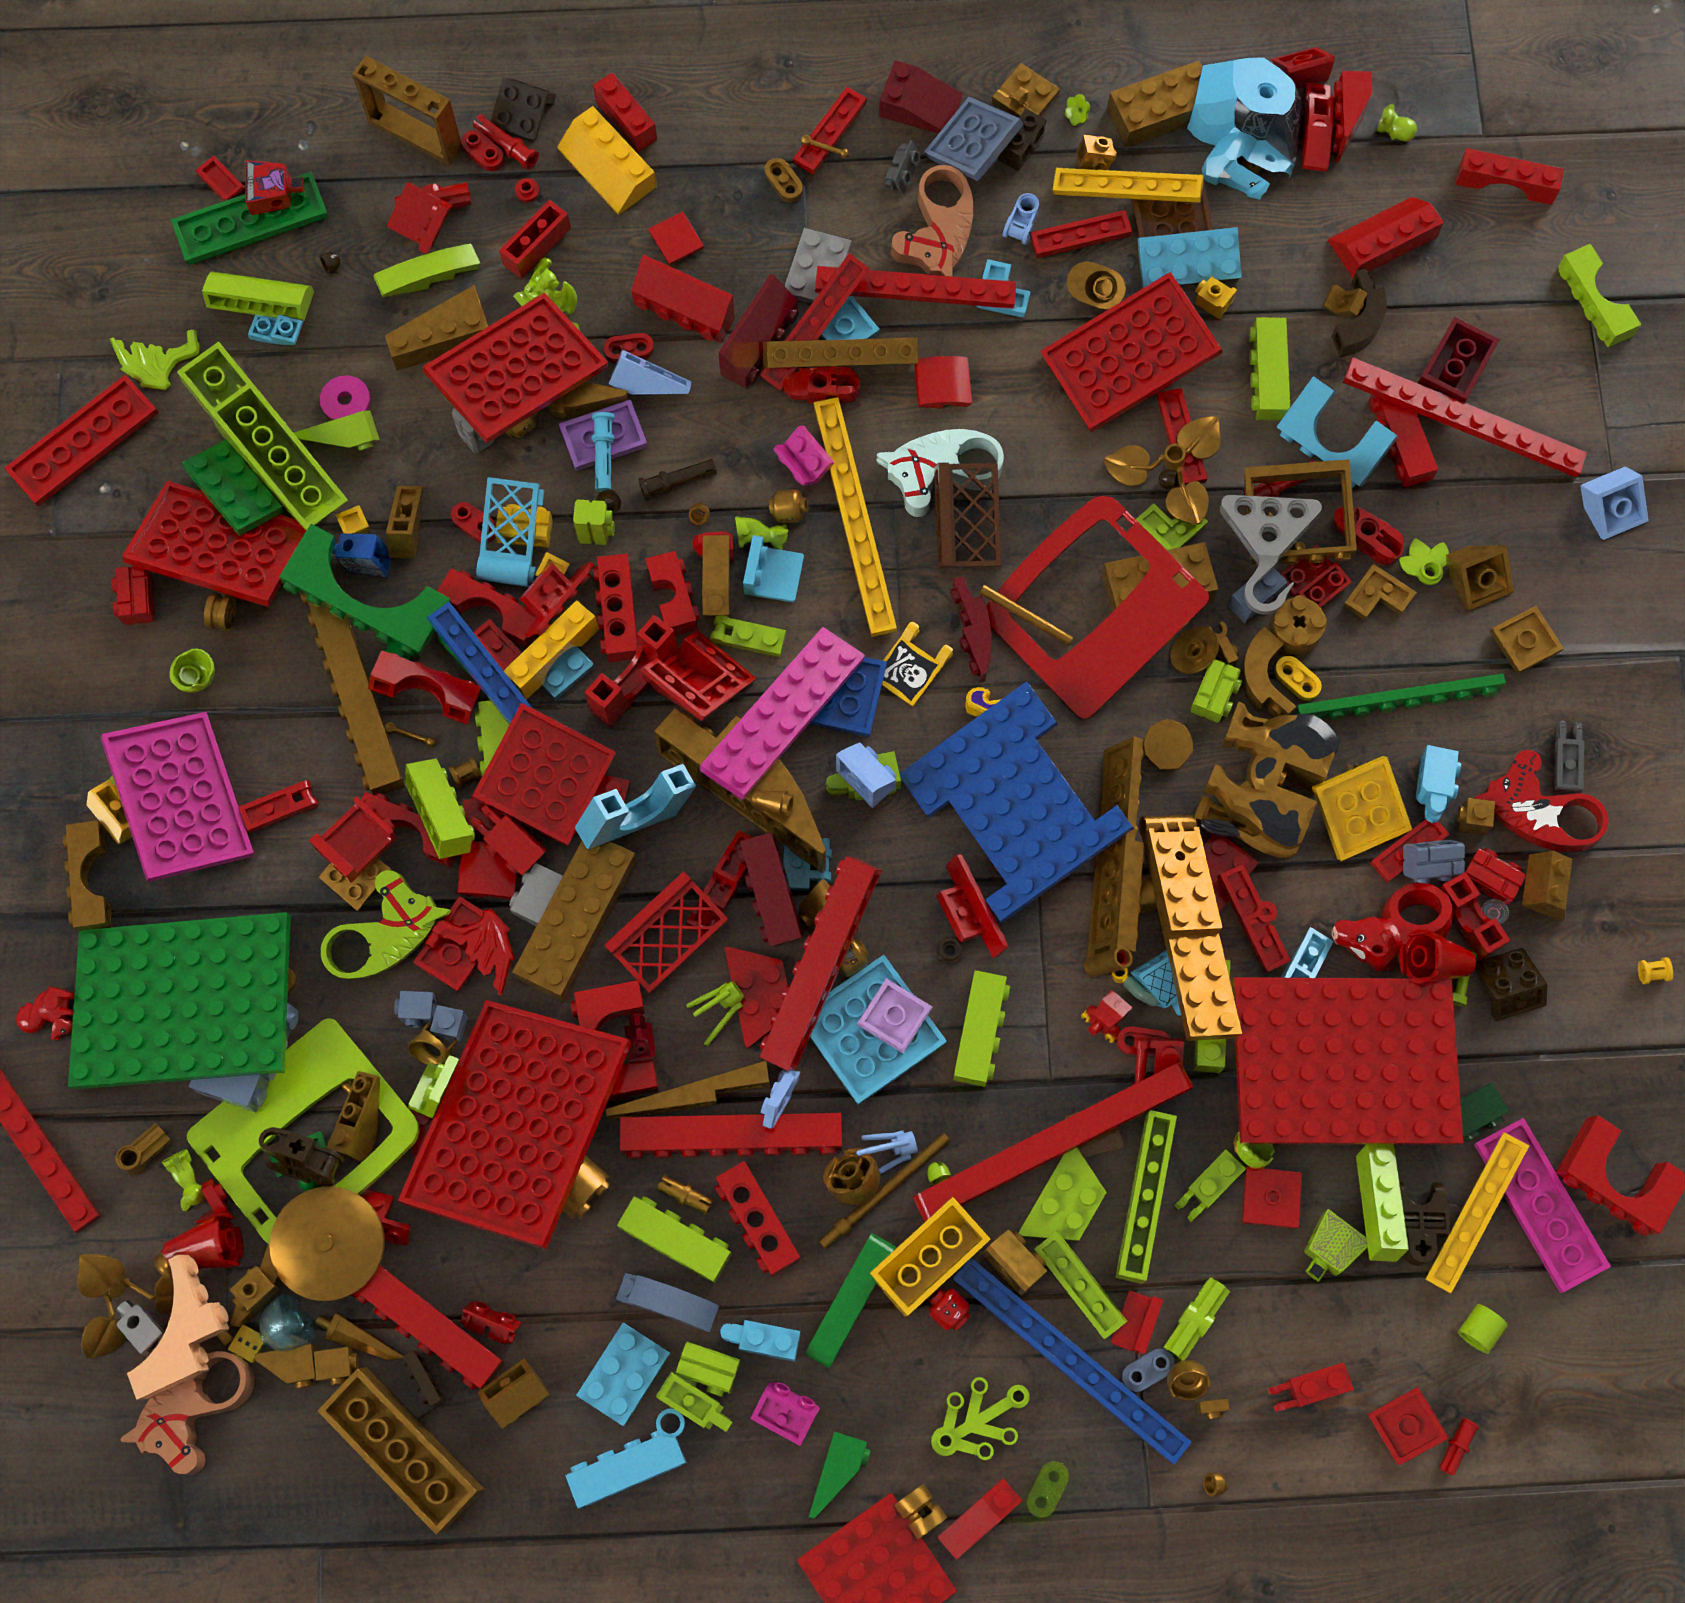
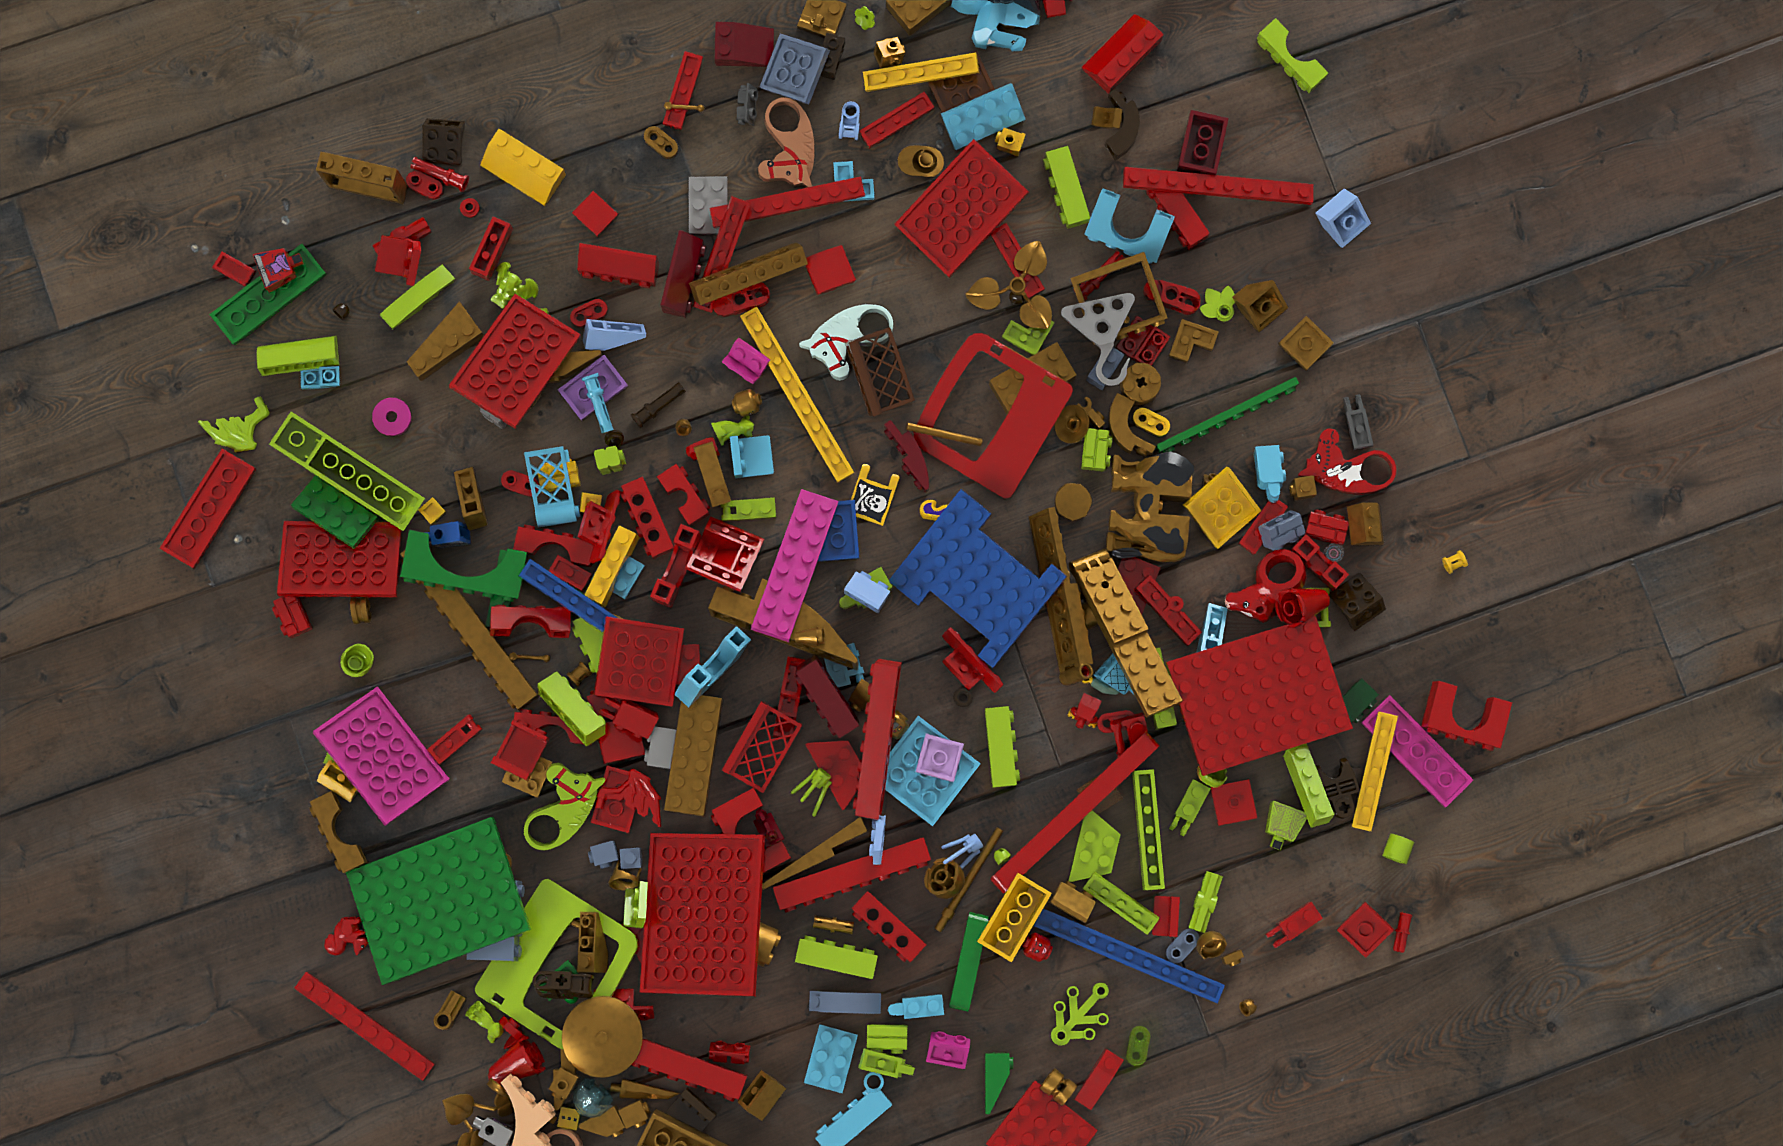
camera: 20 degrees left, 10 degrees up
(349, 431) = (402, 444): lime slope -> none
(625, 112) = (523, 123): red brick -> none
(850, 323) = (749, 246): medium azure plate -> none

